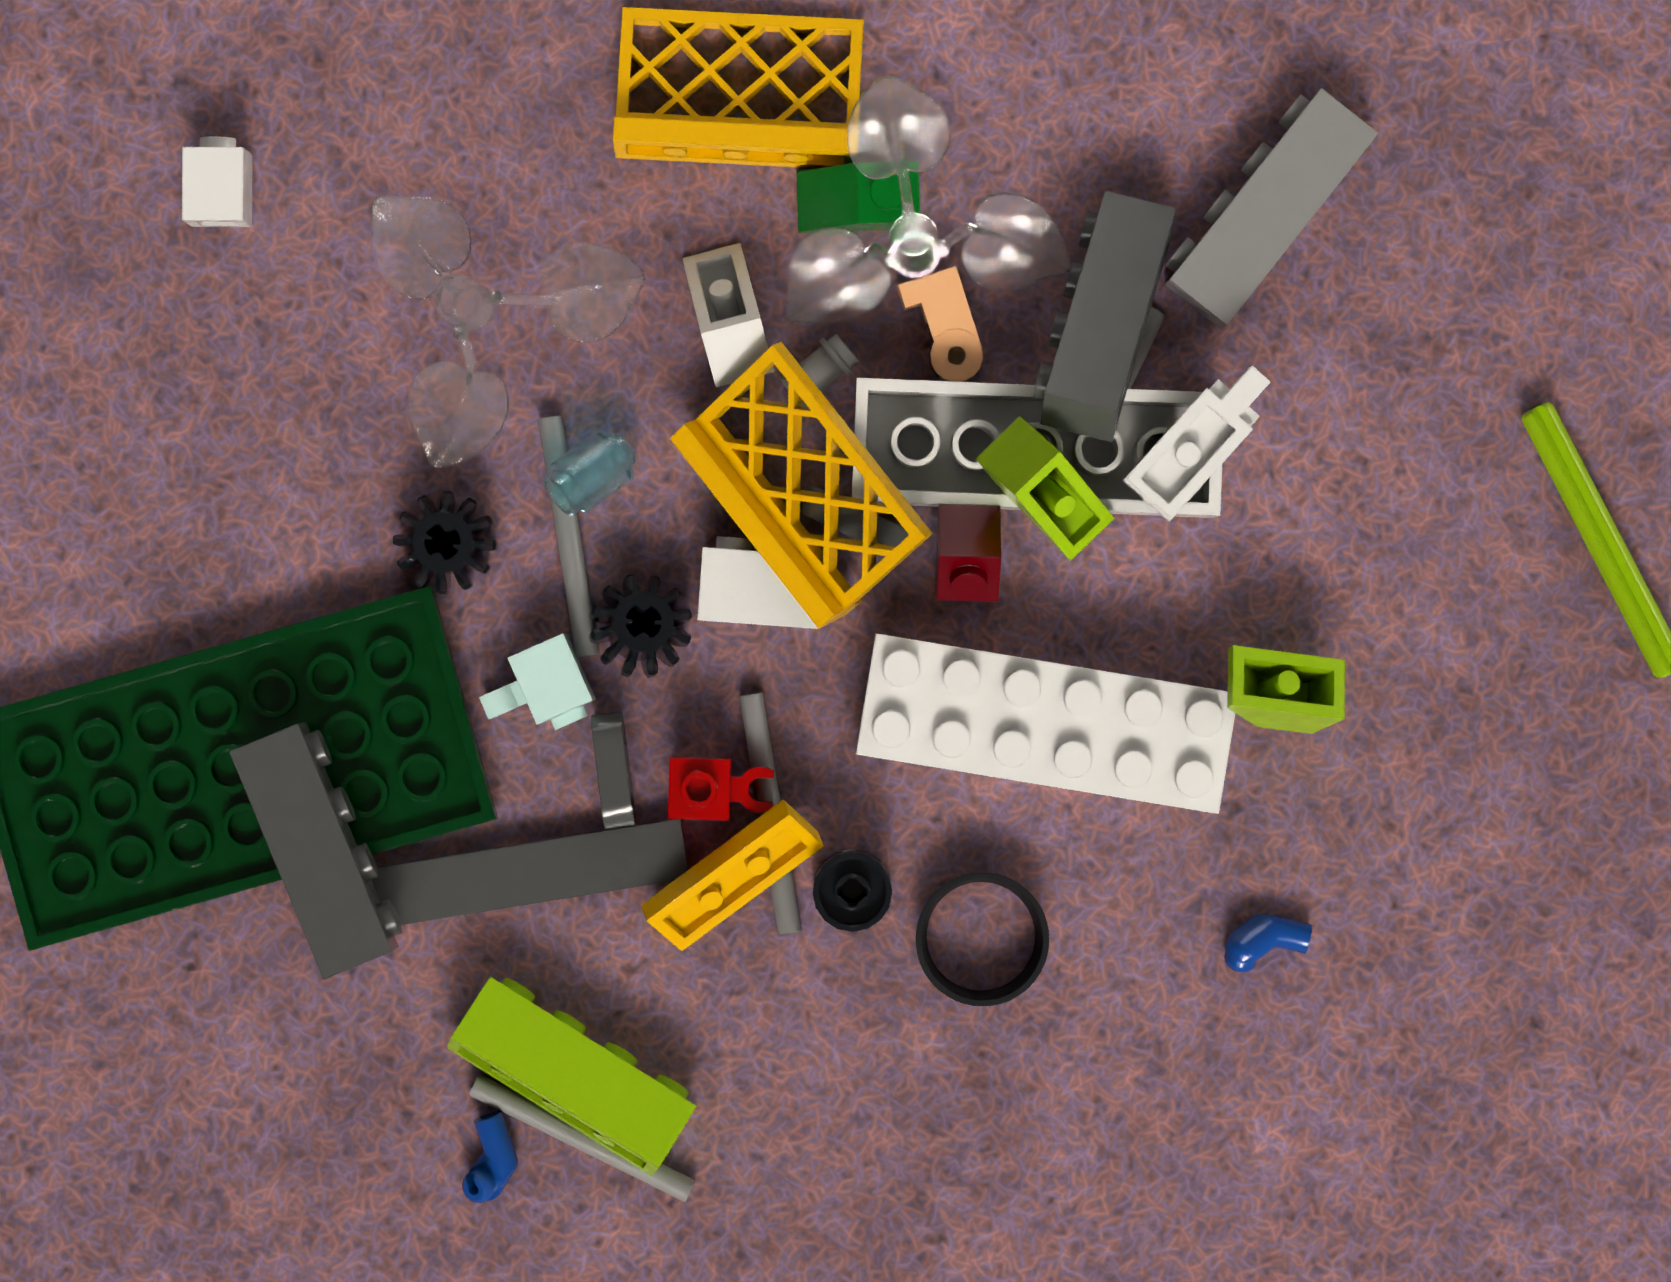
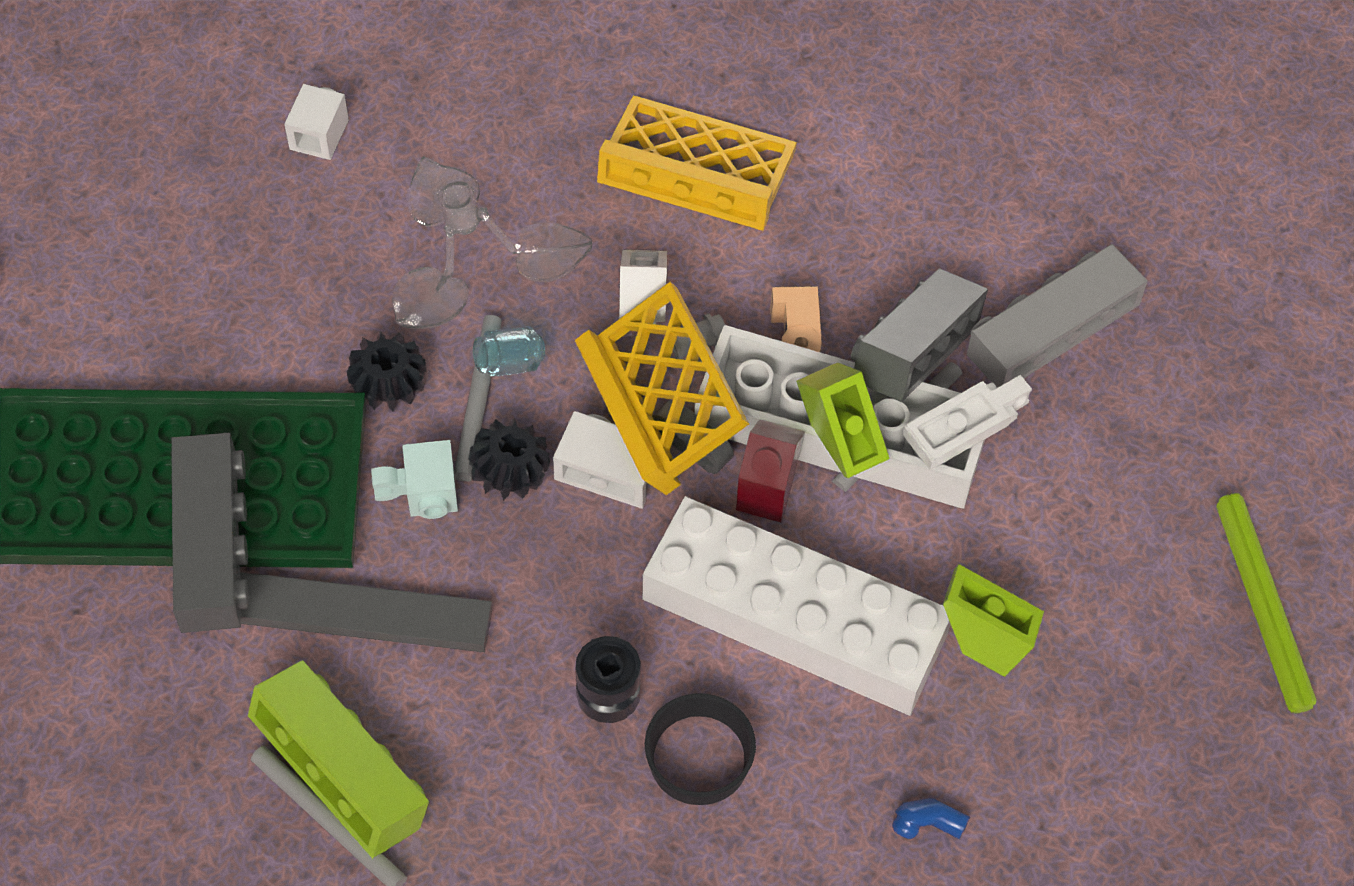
camera: 10 degrees right, 30 degrees down
(495, 1163) = (252, 816): blue arm -> none
(613, 770) = (452, 553): dark grey beam -> none
(705, 788) = (519, 579): red brick -> none
(732, 875) = (517, 644): yellow plate -> none
(761, 754) = (562, 623): light grey bar -> none
(849, 199) = (764, 238): green slope -> none
(900, 132) = (795, 178): clear plant -> none

